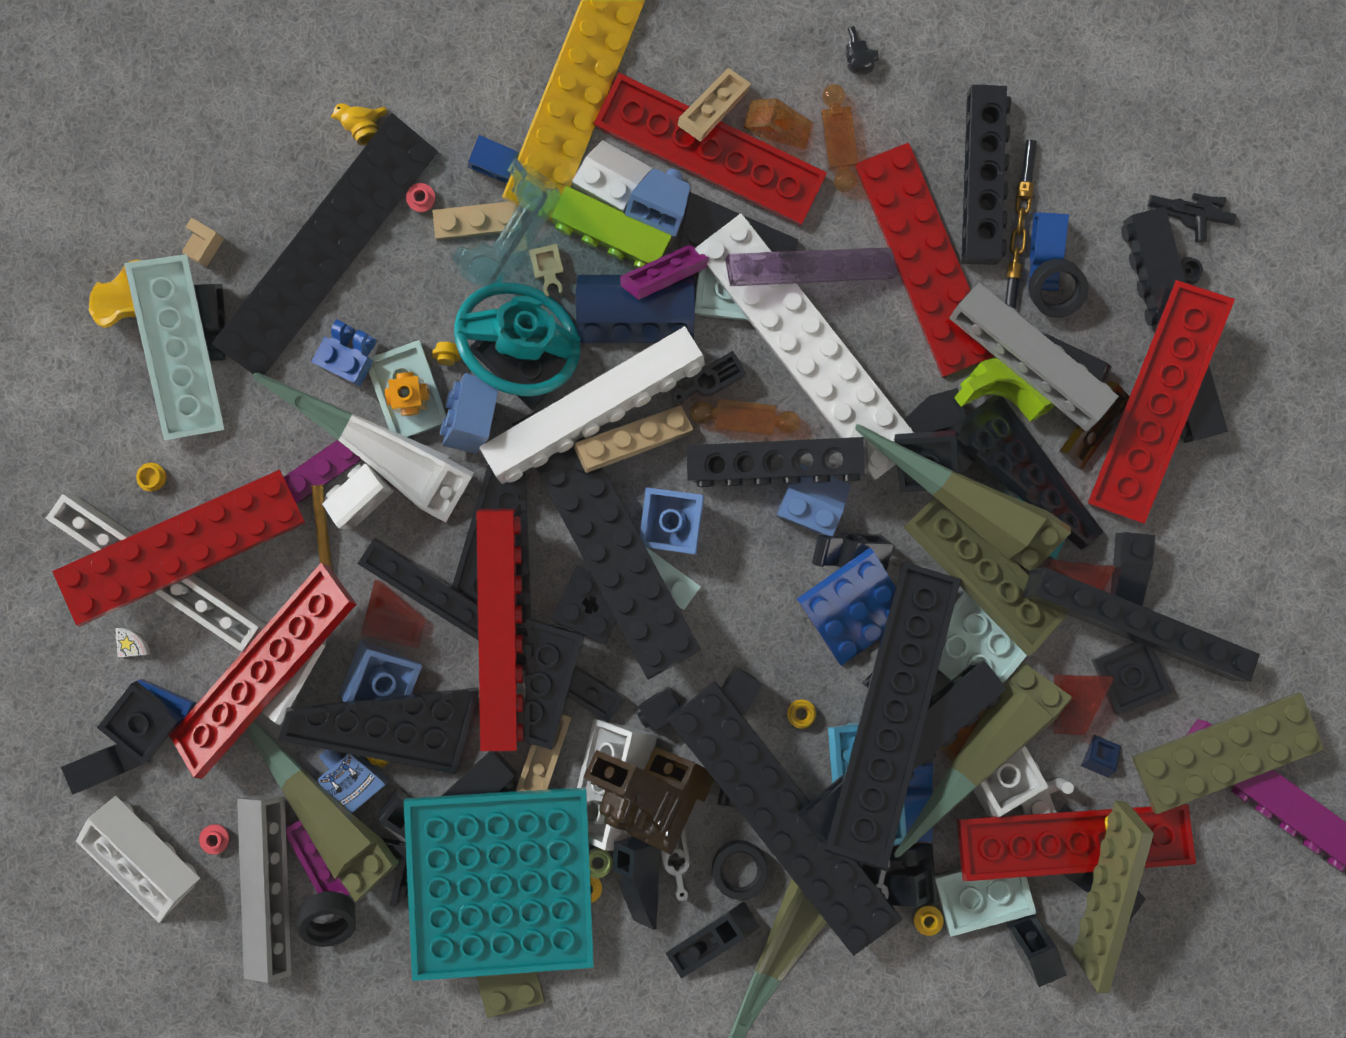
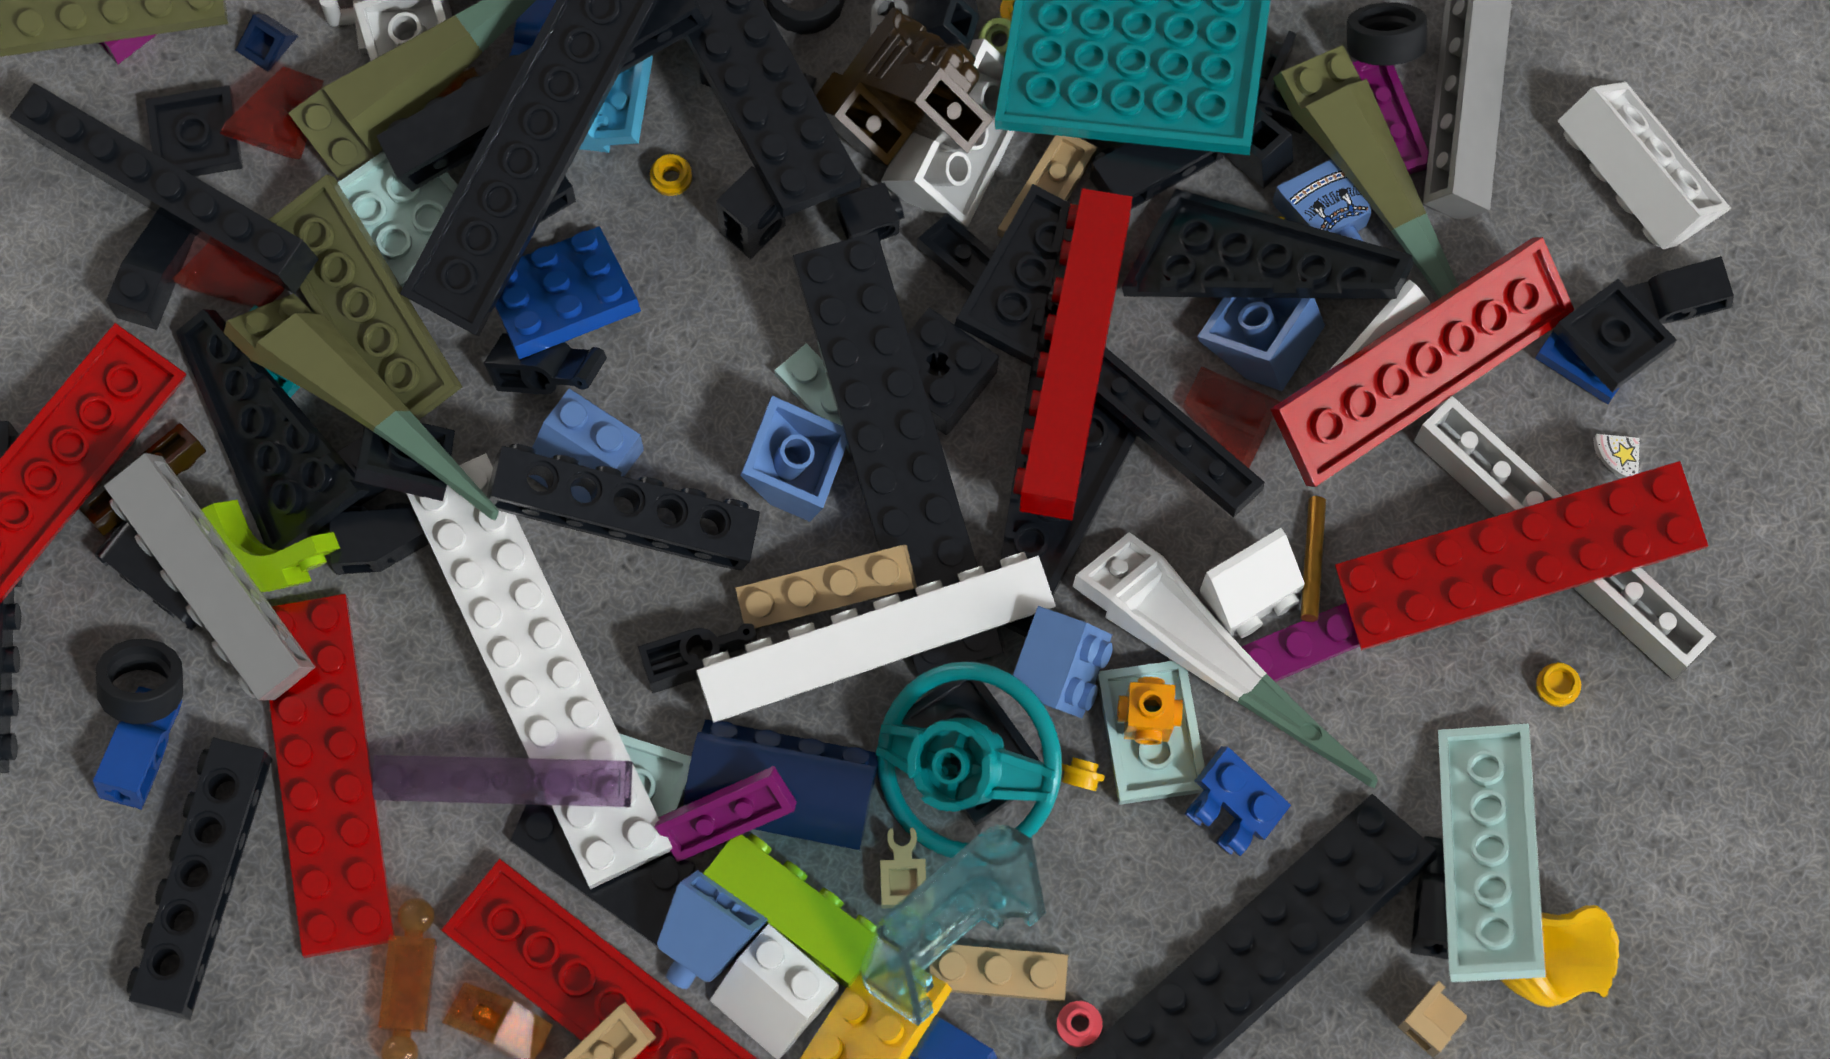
camera: 170 degrees left, 15 degrees down
(221, 834) = (1528, 181): coral plate -> none
(745, 417) = (654, 593): clear orange plate -> none
(1024, 192) = (145, 844): piece -> none

